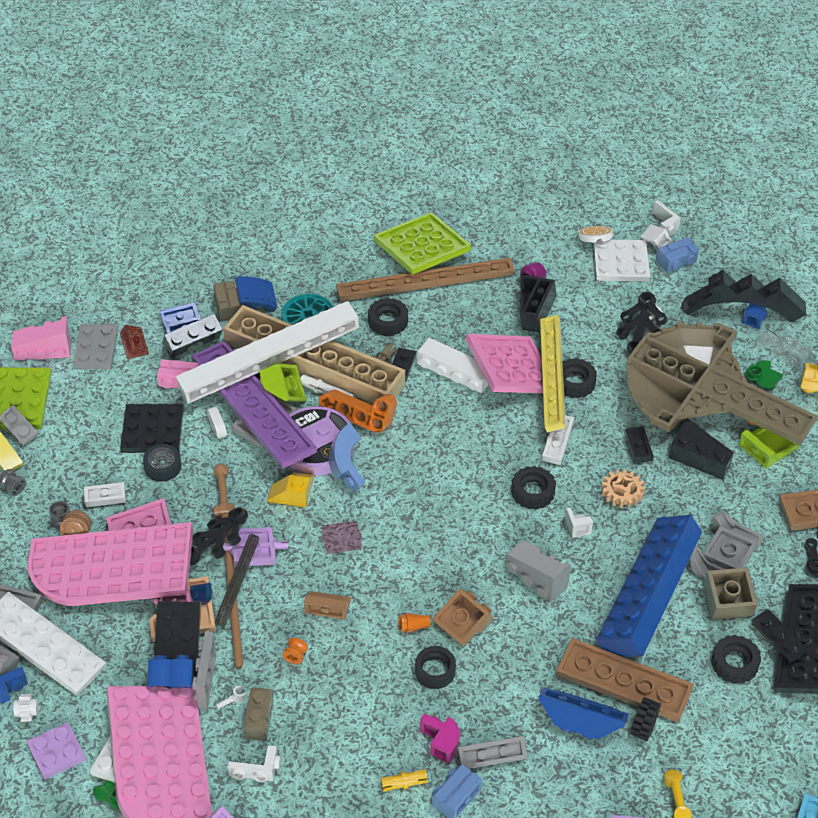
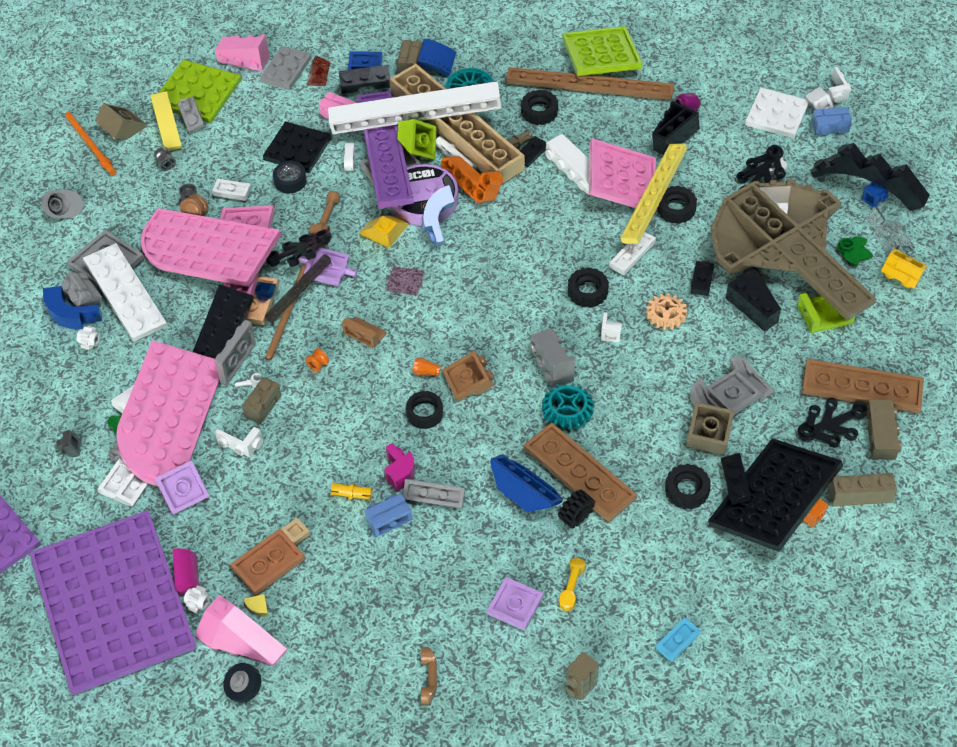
camera: 25 degrees right, 5 degrees up
(56, 750) = (96, 378): lavender plate -> none
(171, 673) = (204, 344): blue brick -> none
(571, 607) = (567, 411): none -> teal gear
(593, 233) = (763, 81): tile -> none
(649, 586) = (640, 399): blue brick -> none

